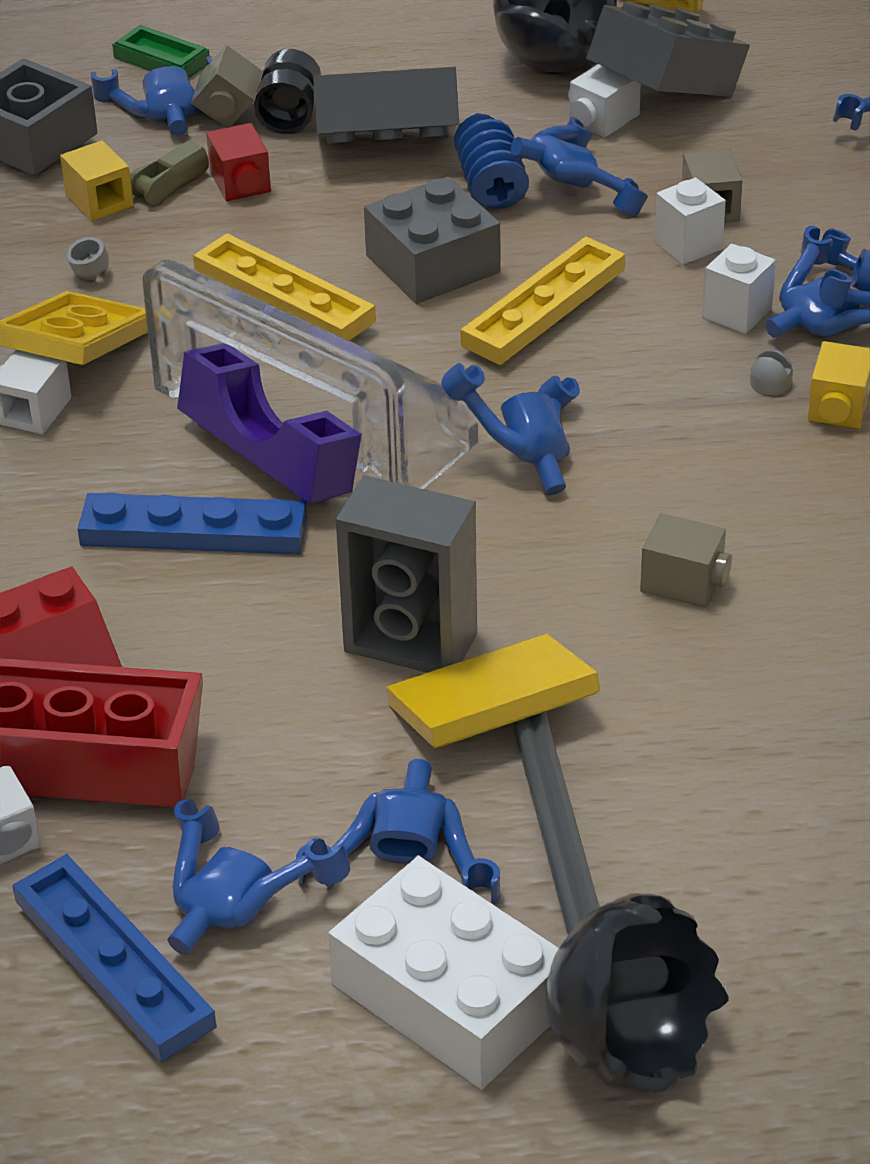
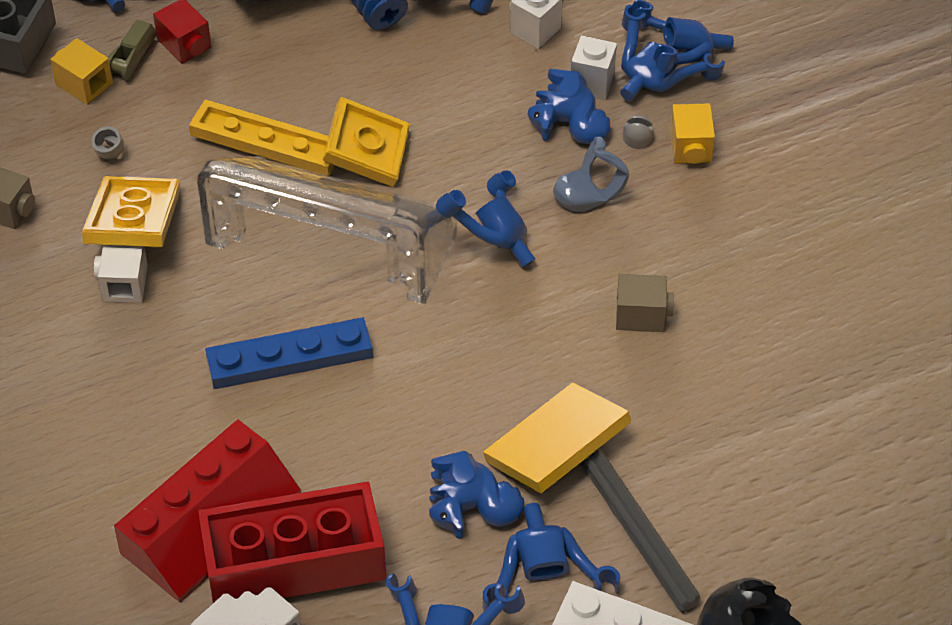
camera: 20 degrees left, 10 degrees up
(306, 454) = (276, 248): dark purple arch -> none
(343, 720) = (470, 486): none -> blue animal
(404, 313) = (366, 141): none -> yellow tile
(407, 574) = (479, 371): dark grey brick -> none
(432, 239) = (359, 68): dark grey brick -> none
(542, 300) = (457, 106): yellow plate -> none
(662, 422) = (576, 189): none -> sand blue piece
(692, 323) = (569, 102): none -> blue animal

